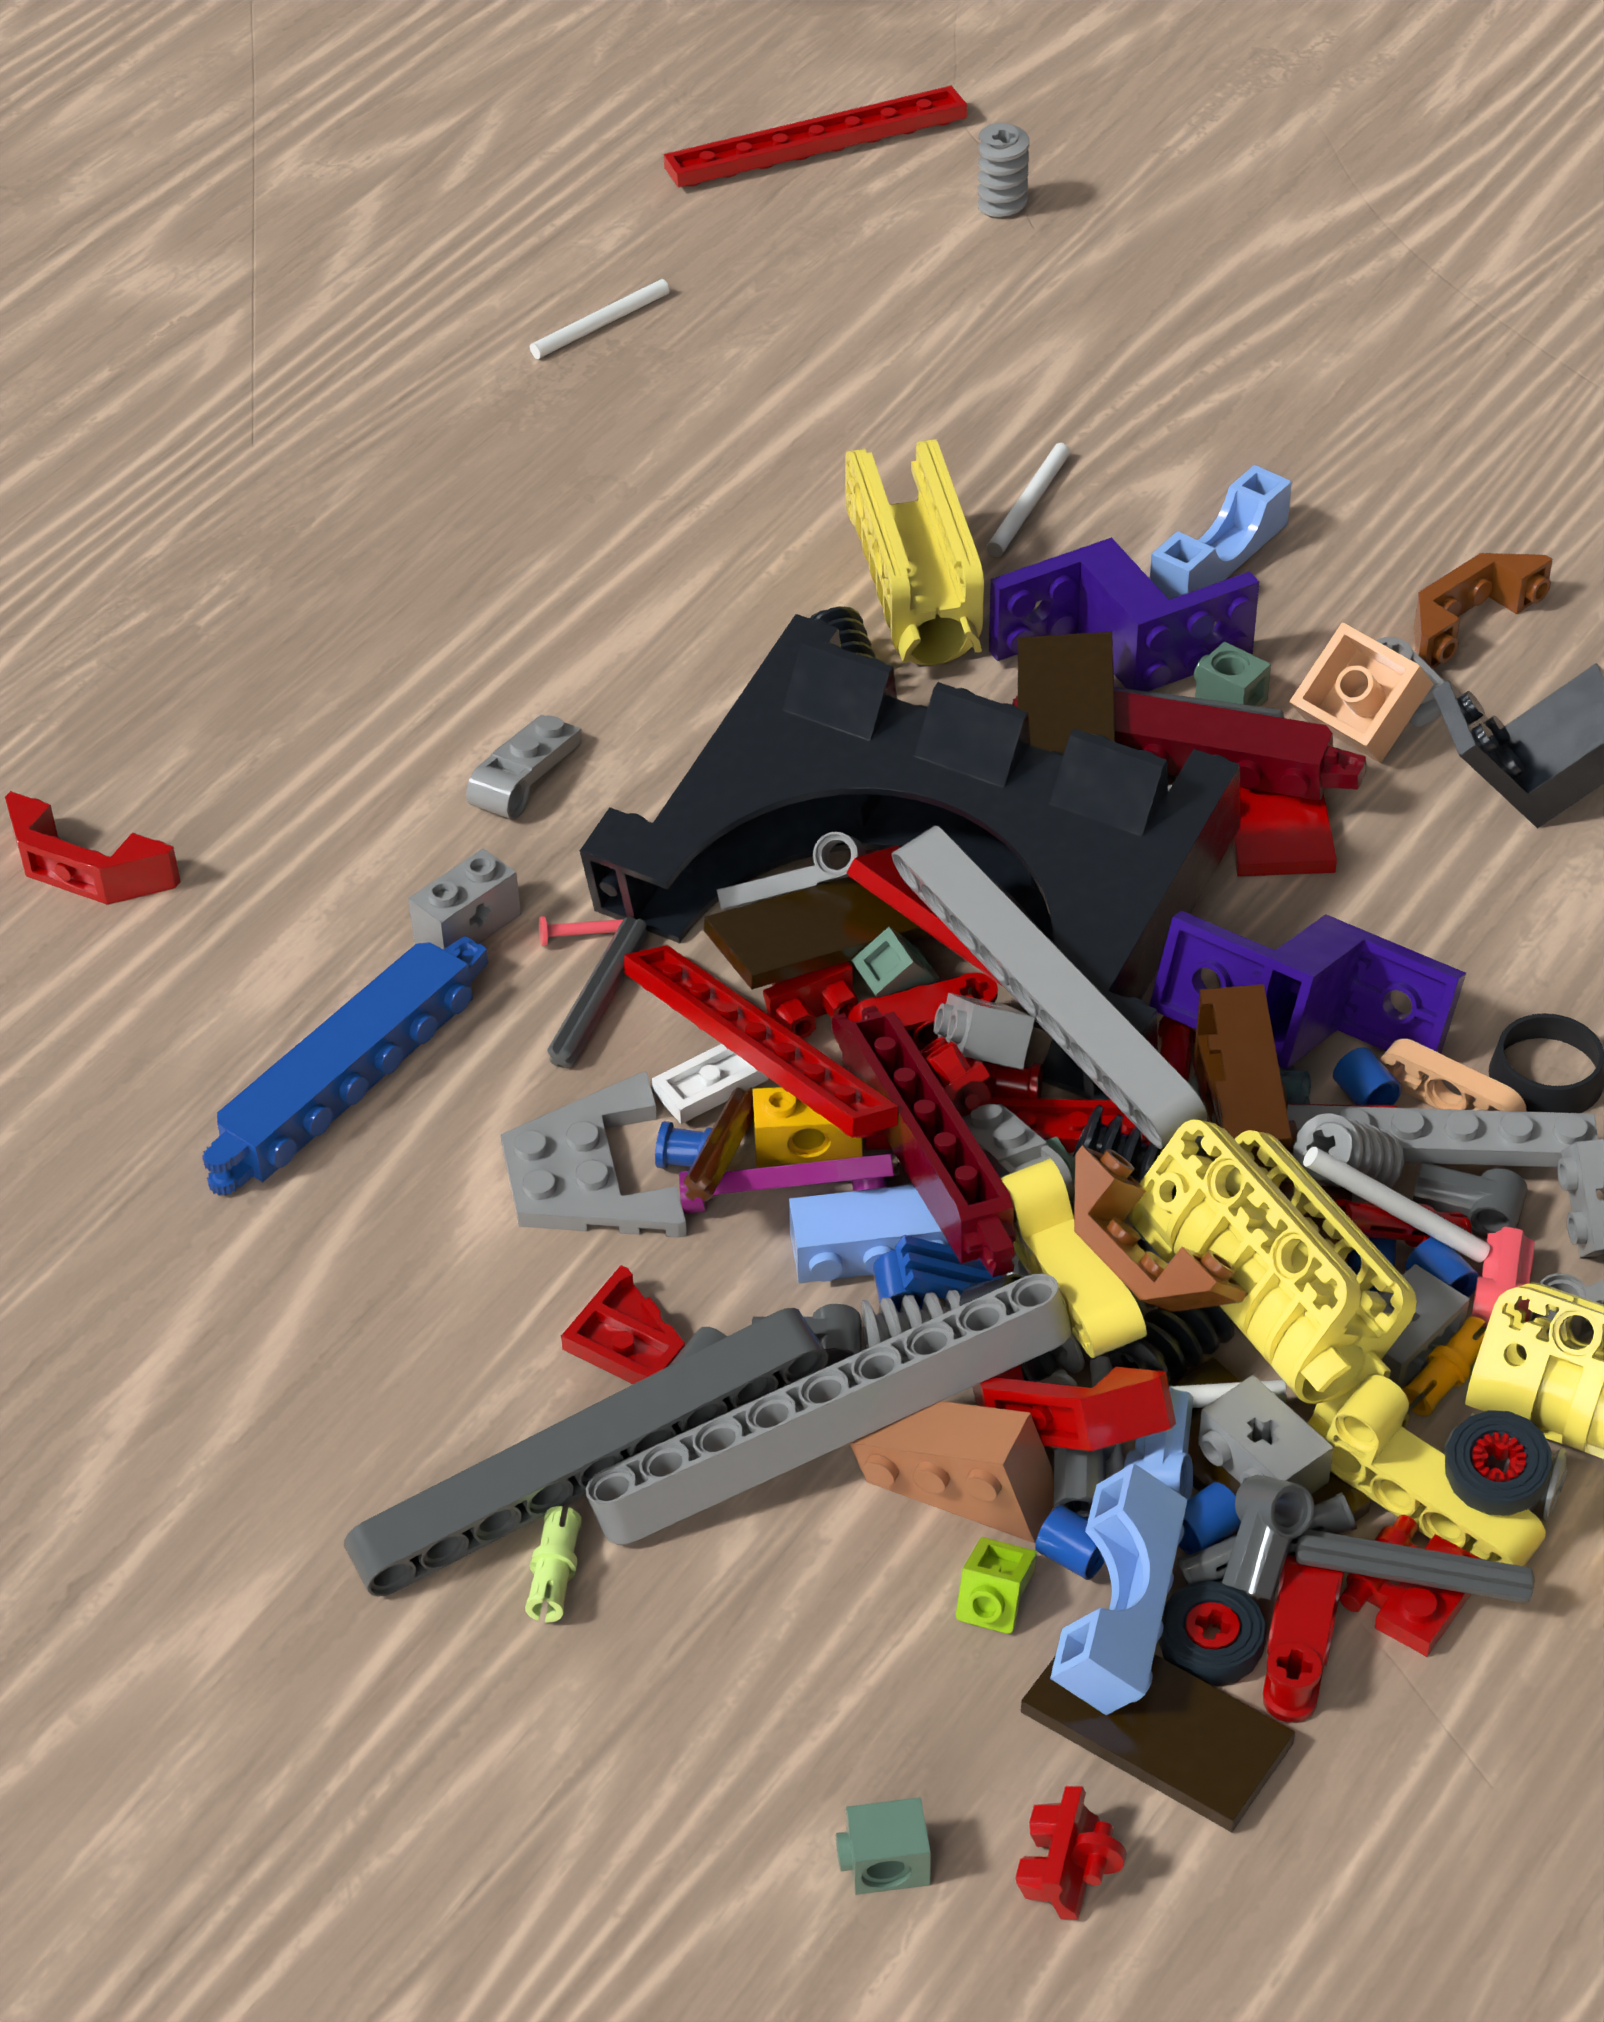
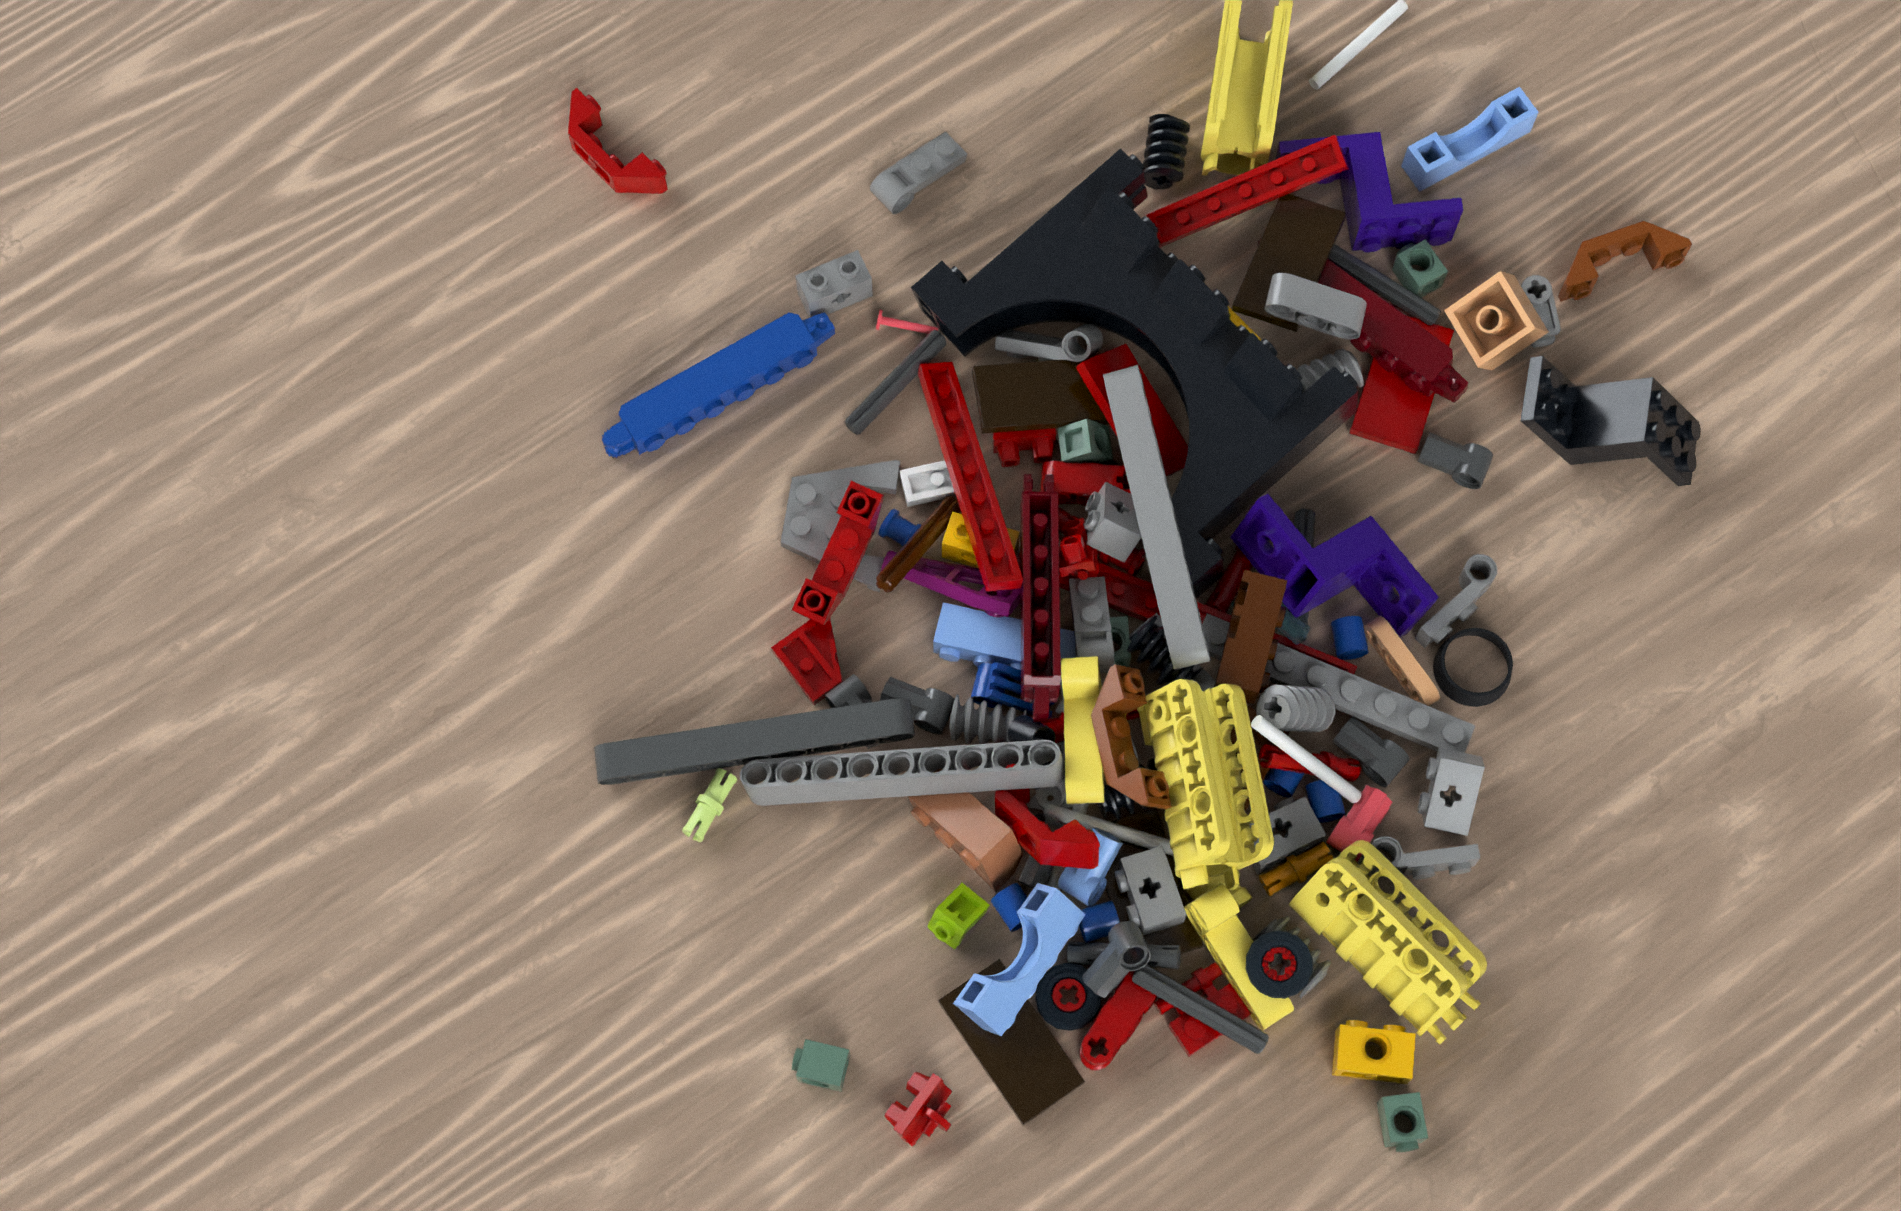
camera: 20 degrees right, 25 degrees up
(619, 1177) = (842, 555): none -> red slope
(998, 624) = (1249, 190): none -> red plate
(1133, 718) = (1315, 306): none -> light grey beam
(1408, 854) = (1465, 462): none -> dark grey piece
(1493, 979) = (1463, 604): none -> light grey plate

